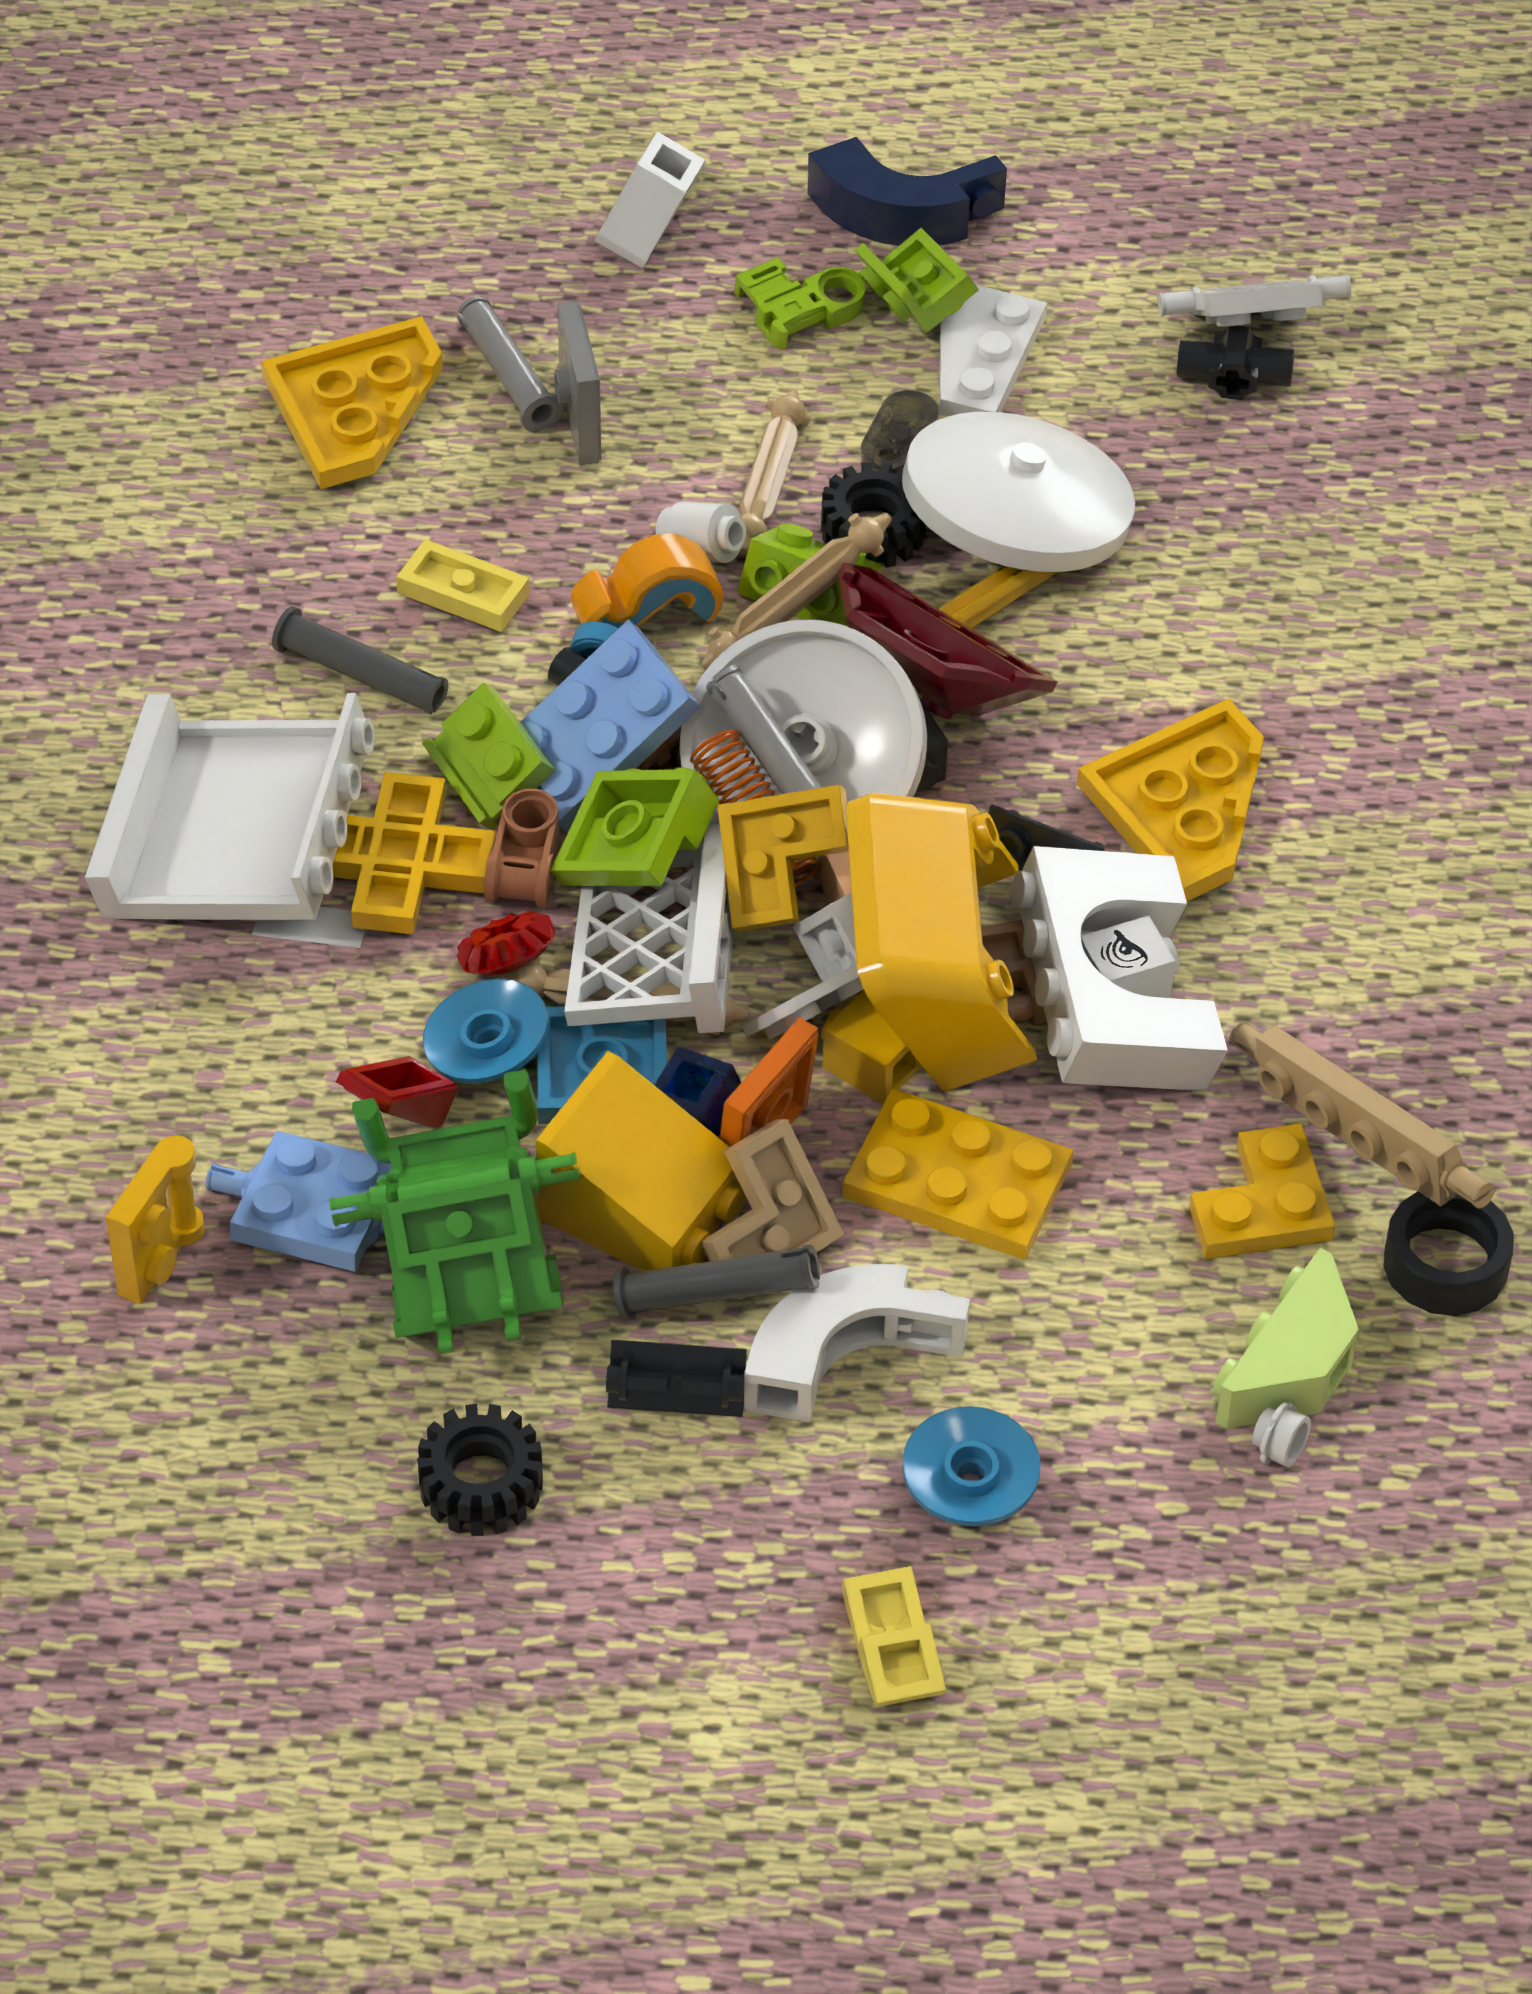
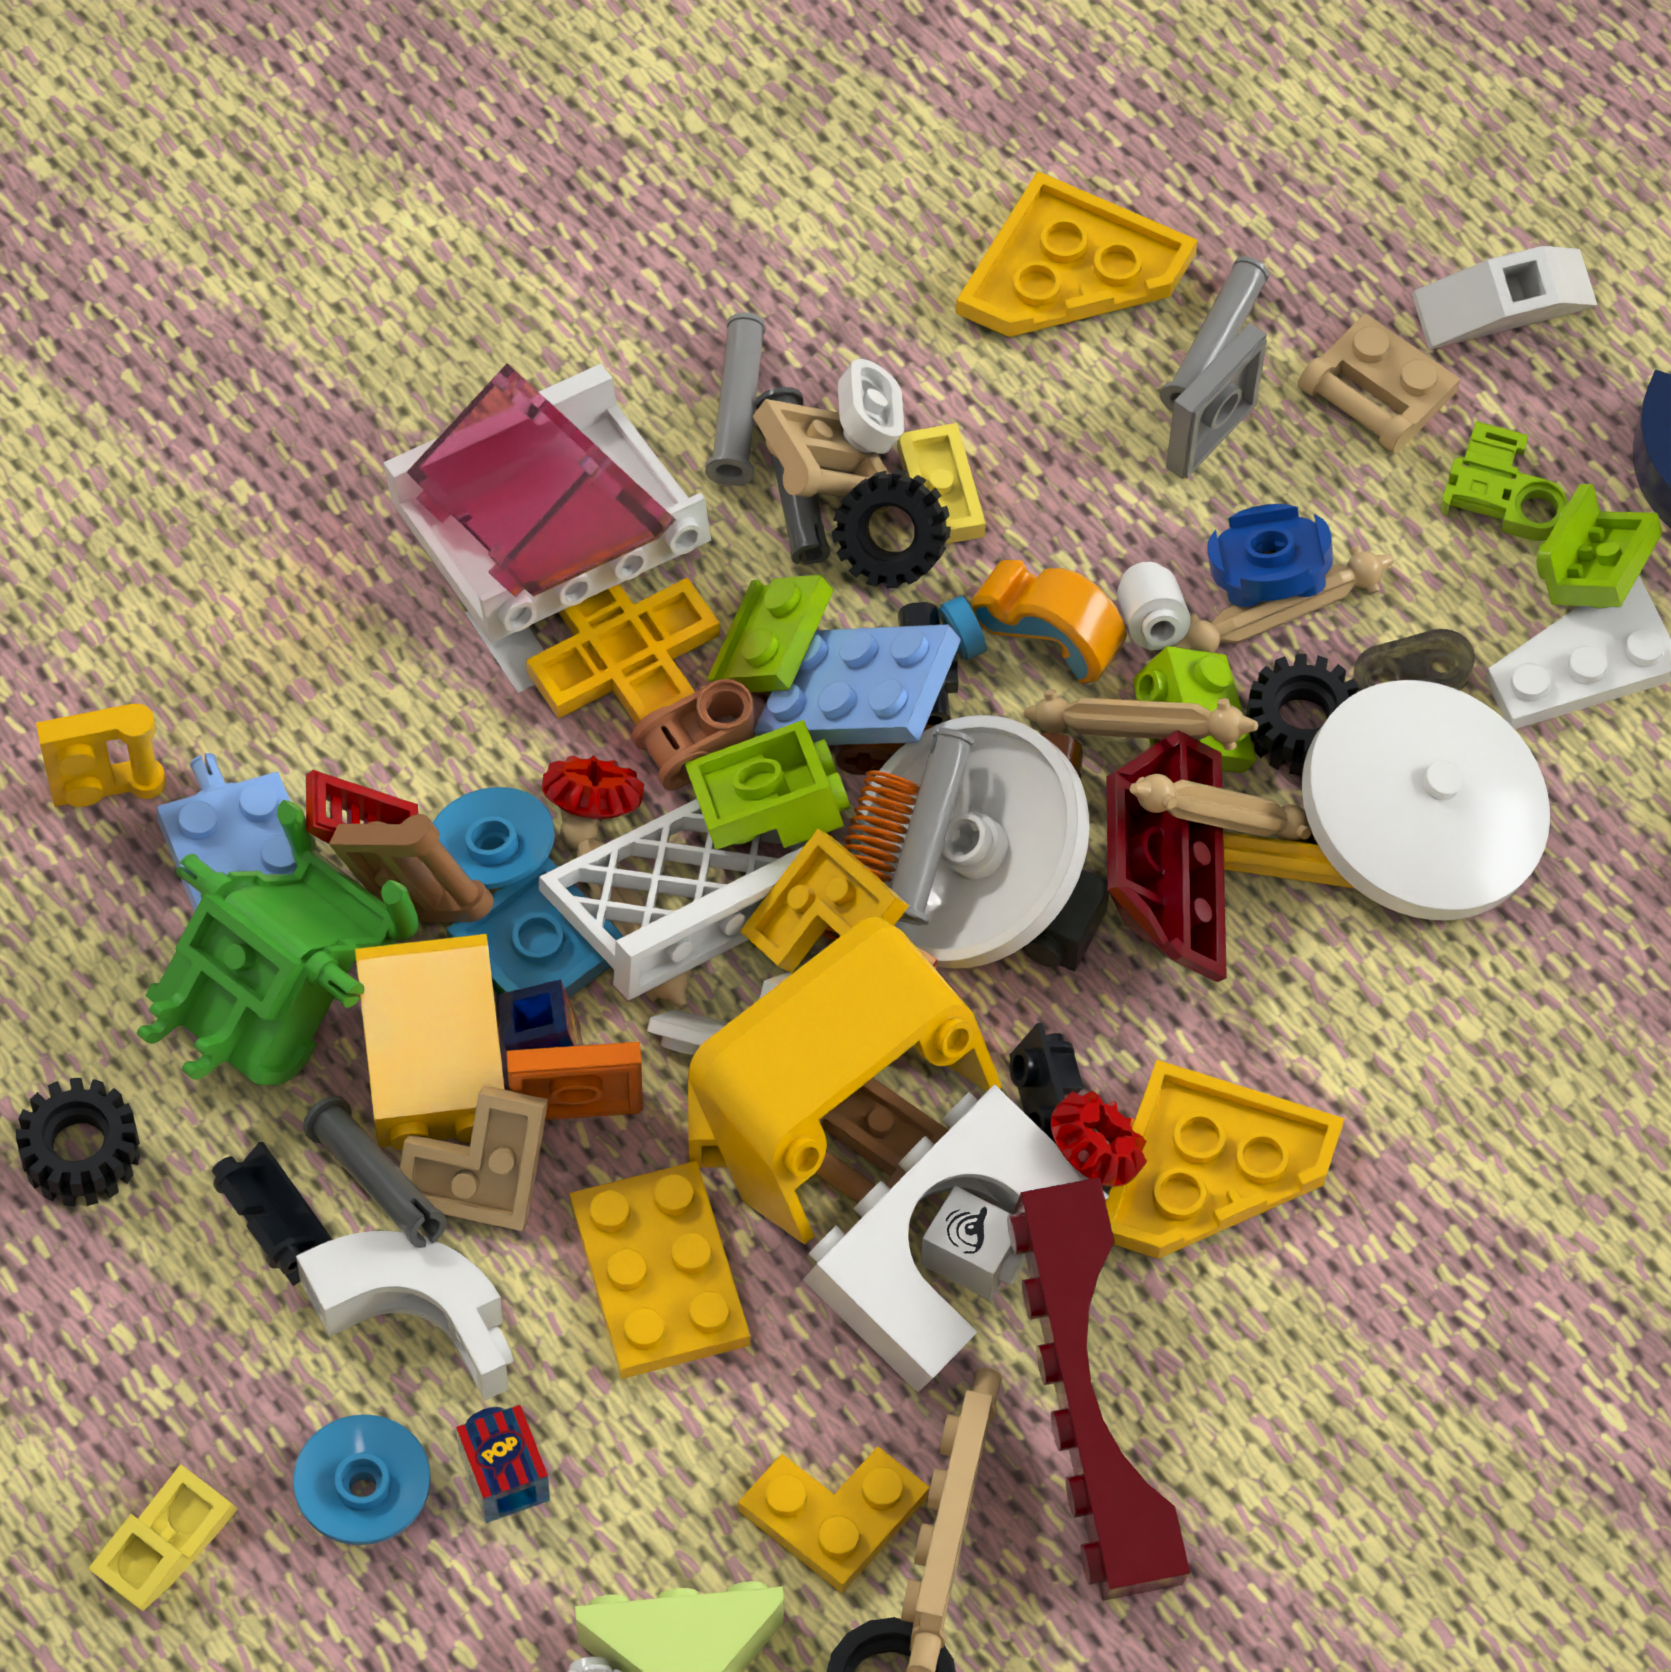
camera: 50 degrees right, 10 degrees up
(238, 783) = (534, 489): none -> clear pink windscreen
(257, 652) = (737, 401): none -> light grey pin
(346, 574) = (870, 407): none -> white plate
(388, 624) = (813, 439): none -> tan plate
(462, 1091) = (390, 852): none -> medium nougat plate
(516, 619) = (865, 554): none -> black tyre
(642, 306) = (1389, 371): none -> tan plate
(730, 443) = (1295, 569): none -> blue plate
(927, 585) = (1221, 808): none -> tan wheel
(1039, 1366) = (502, 1462): none -> clear blue brick
(1124, 828) = (1088, 1150): none -> red gear
(1438, 1020) = (1129, 1524): none -> dark red arch

